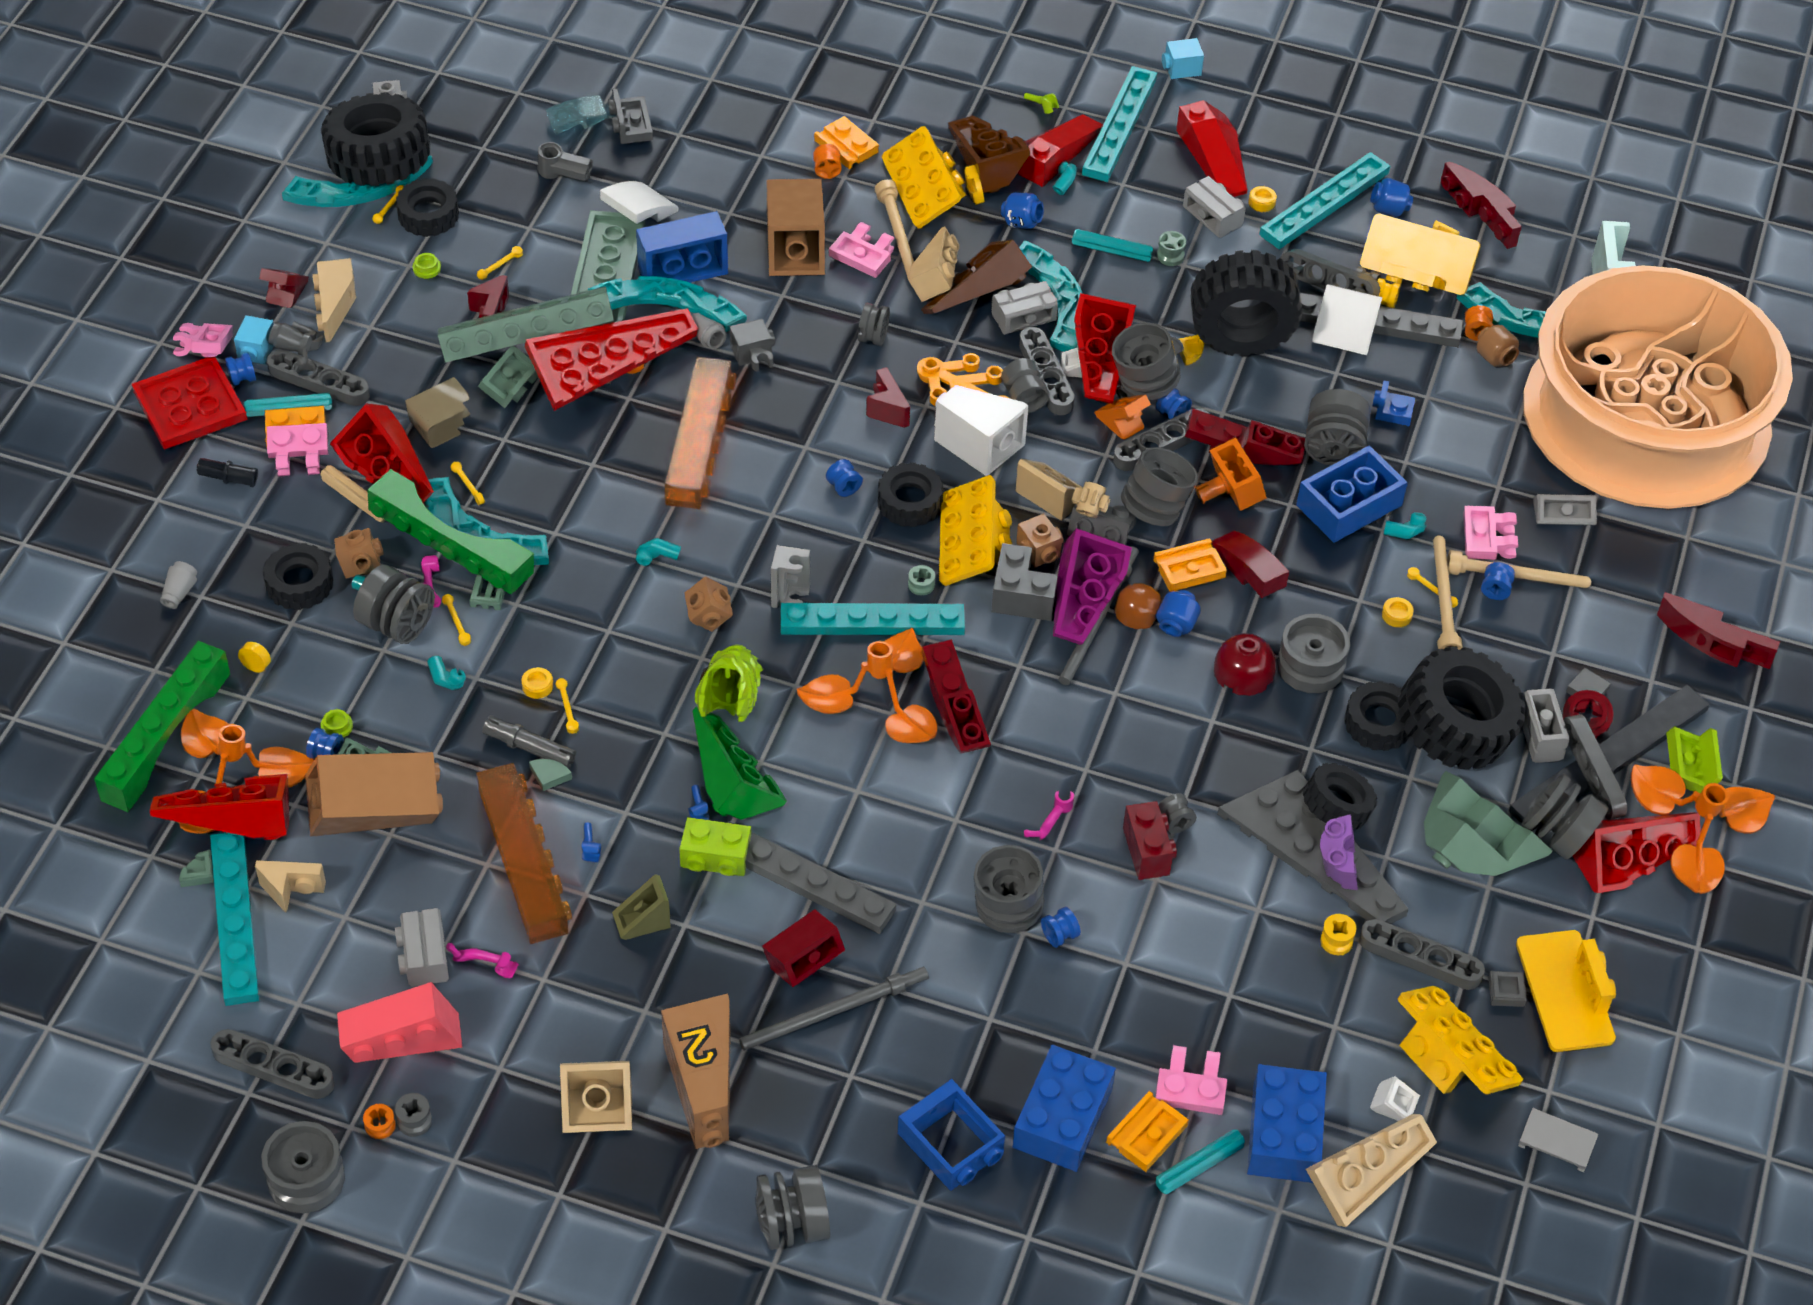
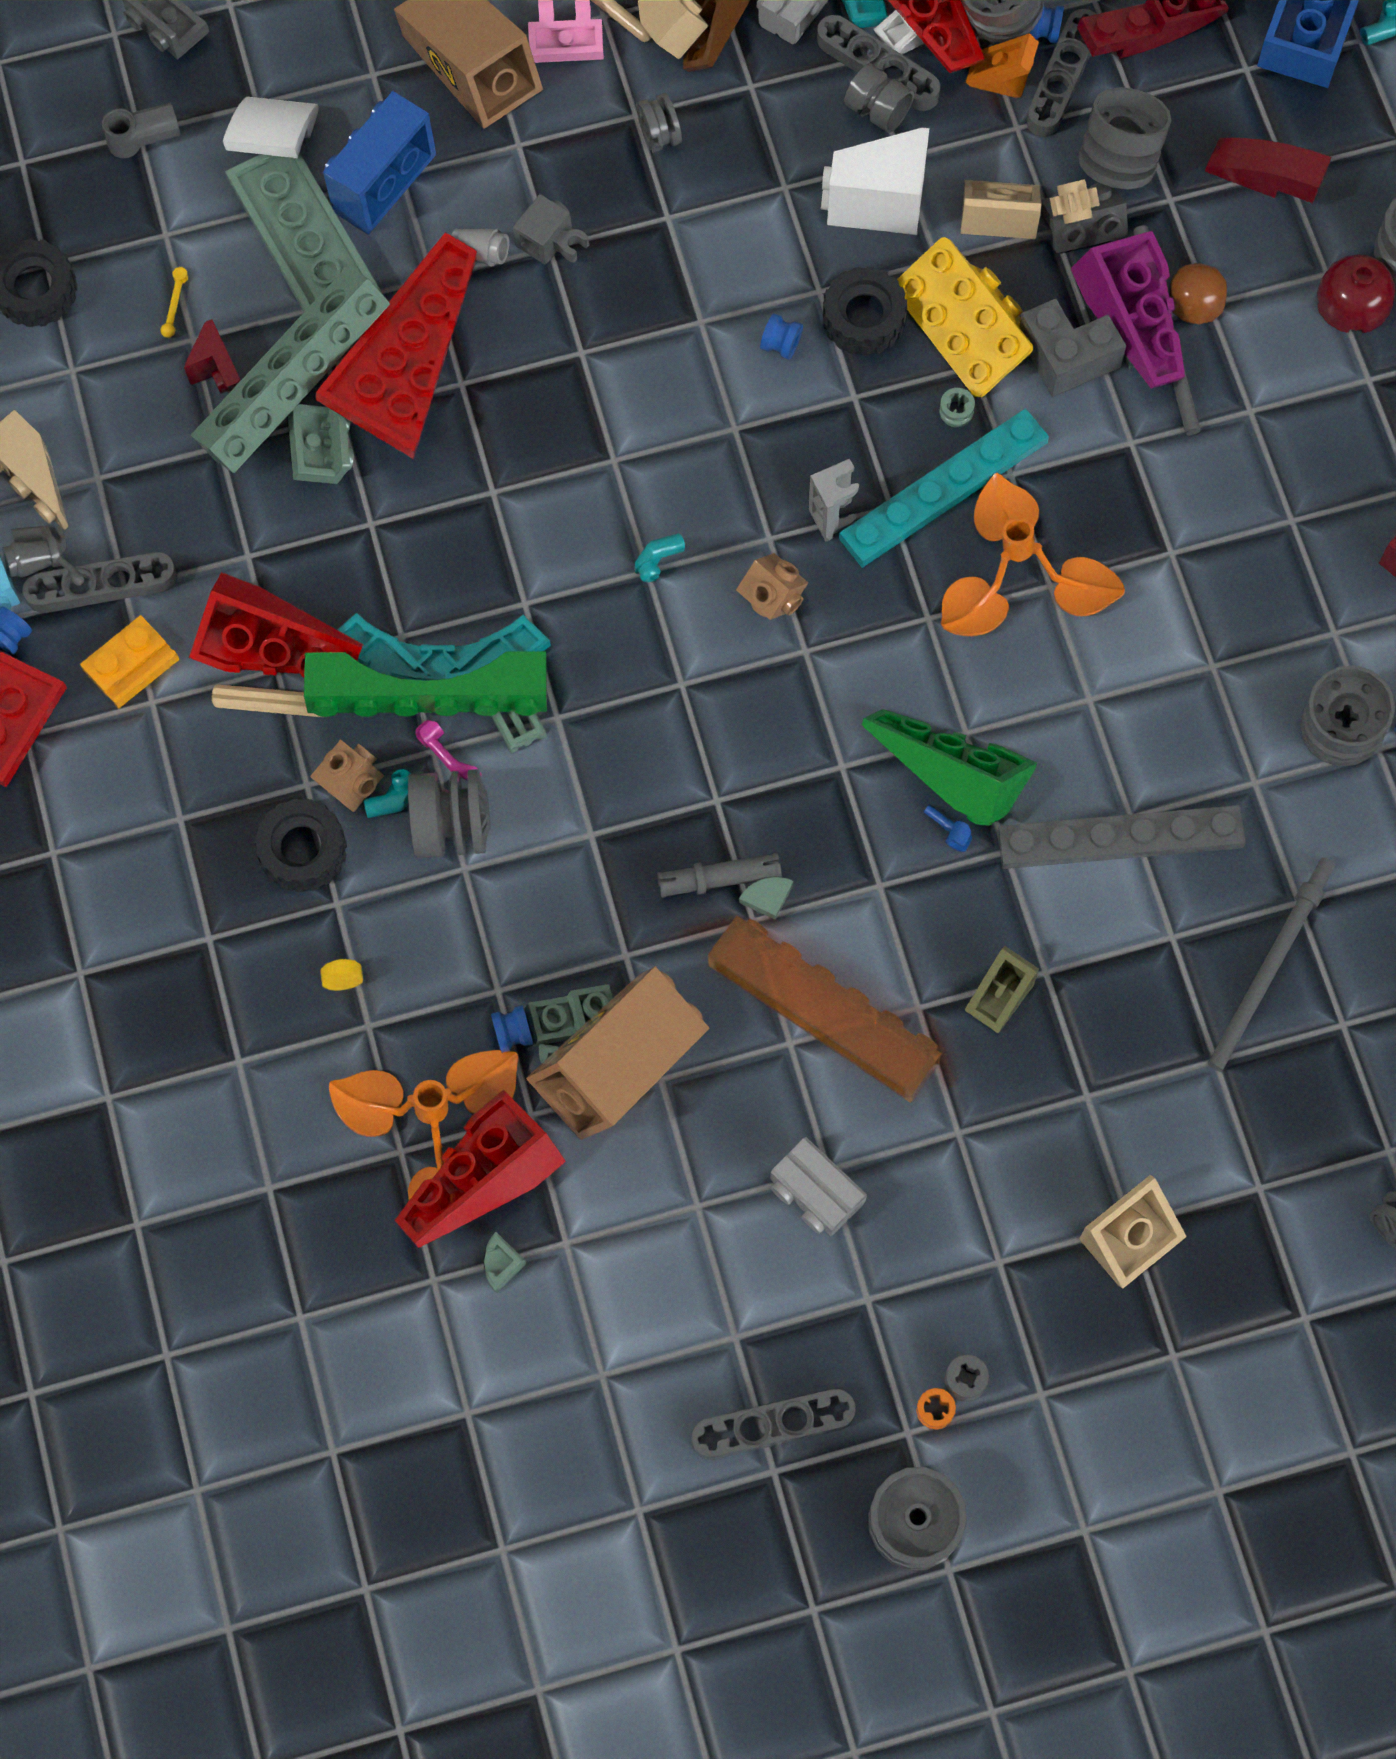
camera: 30 degrees left, 20 degrees up
(130, 766) = (318, 1126): green arch -> none
(178, 583) = (177, 944): light grey cone -> none
(227, 472) = (106, 769): black axle -> none
(234, 919) = (589, 1291): teal plate -> none
(257, 407) = (69, 661): teal axle -> none
(283, 877) = (602, 1215): tan slope -> none
(297, 441) = (153, 680): bright pink plate -> none
(337, 722) = (498, 993): lime plate -> none
(400, 1025) = (873, 1297): coral wedge -> none
(426, 266) = (98, 361): lime plate -> none
(439, 411) = (279, 539): dark tan piece -> none
(451, 680) = (561, 860): teal arm -> none
(456, 467) = (351, 594): yellow hinge -> none
(464, 638) = (539, 796): yellow hinge -> none
(503, 968) = (912, 1145): dark pink piece -> none
(537, 683) = (663, 798): yellow tile -> none
(572, 725) = (742, 823): yellow hinge -> none
(582, 110) = (98, 47): clear light blue slope -> none
(590, 849) = (886, 956): blue hand -> none
(673, 293) = (411, 220): teal tile -> none
(698, 433) = (582, 379): clear orange brick -> none
(699, 1058) = (1220, 1128): medium nougat slope -> none
(714, 846) = (1015, 866): lime bracket -> none
(729, 682) = (881, 667): lime head -> none
(803, 948) = (1197, 921): dark red brick -> none
(888, 401) = (756, 210): dark red slope -> none
(933, 370) = (804, 138): light orange plant -> none
(954, 698) = (1109, 532): dark red slope -> none
(1042, 537) = (1047, 279): medium nougat brick -> none
(1060, 807) = (1304, 583): dark pink piece -> none
(1178, 613) = (1248, 276): blue head -> none
(1190, 565) = (1212, 210): light orange plate -> none
(1235, 477) = (1182, 71): orange brick -> none

